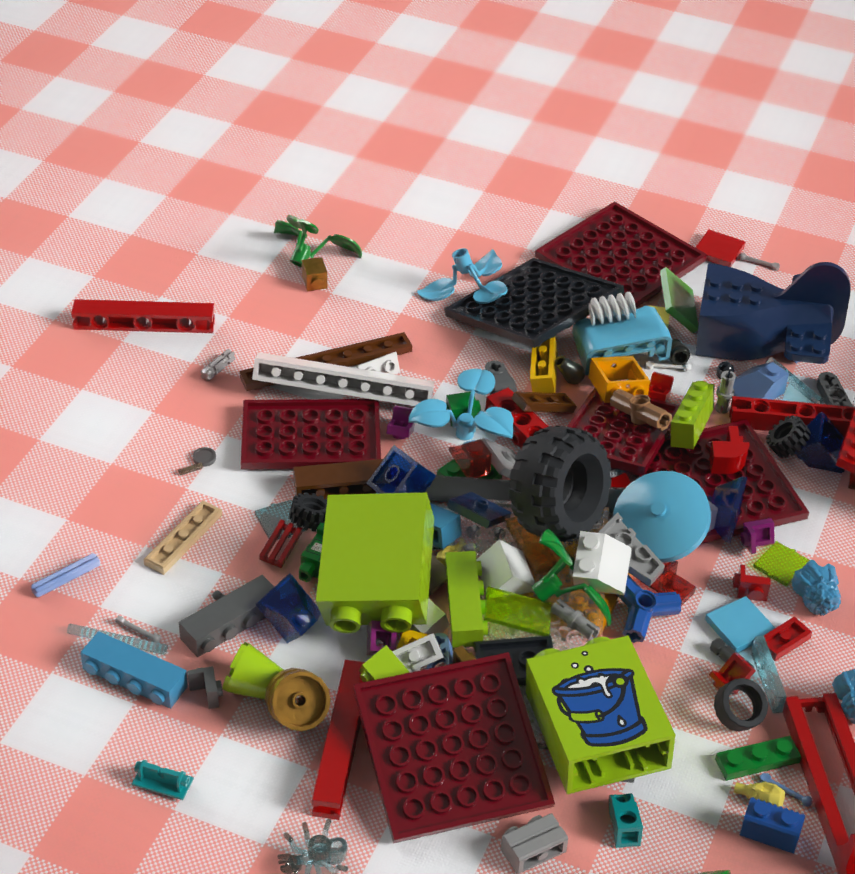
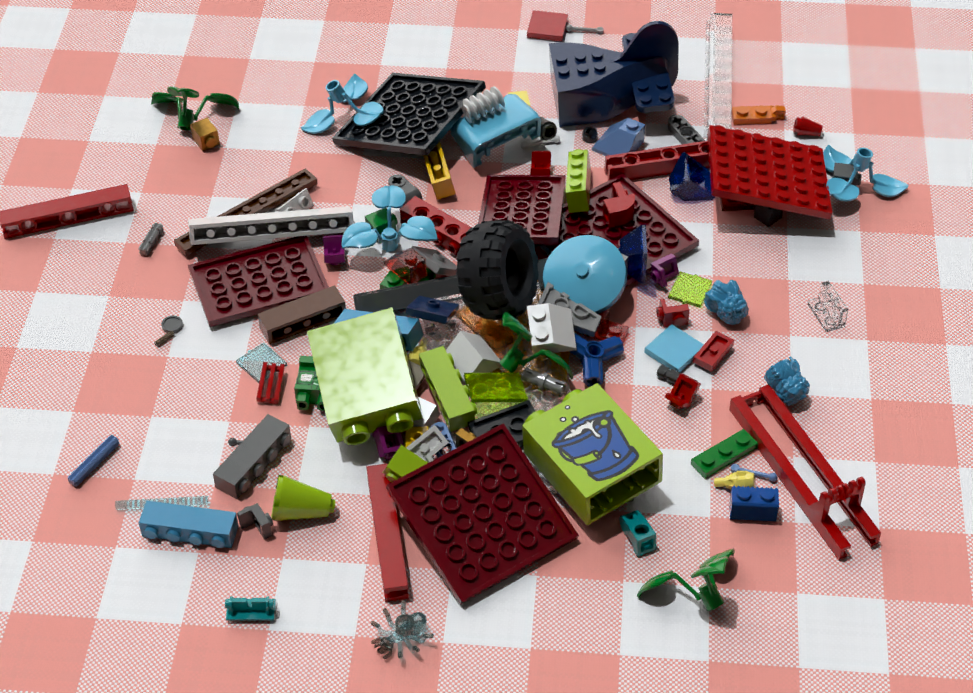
camera: 15 degrees left, 5 degrees up
(122, 621) = (159, 486): light grey hinge -> none
(182, 537) = (182, 400): tan tile -> none
(289, 609) = (302, 437): clear blue slope -> none
(308, 510) = (287, 348): black tyre -> none
(312, 704) = (340, 510): pearl gold wheel -> none
(400, 474) = (355, 297): clear blue slope -> none
(534, 843) = (573, 571): light grey brick -> none
(544, 402) = (449, 201): reddish brown tile -> none
(571, 371) = (461, 167): pearl dark grey cone -> none
(622, 250) = (467, 47): dark red plate -> none
(625, 369) = (508, 153): light orange window -> none
(641, 409) = (536, 187): medium nougat piece -> none
(679, 300) = (531, 81): tile -> none
(725, 391) = (598, 154): light grey pin -> none
(758, 699) = (711, 408): black tyre -> none
(768, 674) = (711, 384): clear light blue tile -> none
(788, 436) = (662, 179): black tyre -> none
(798, 384) = (655, 132): clear light blue tile -> none

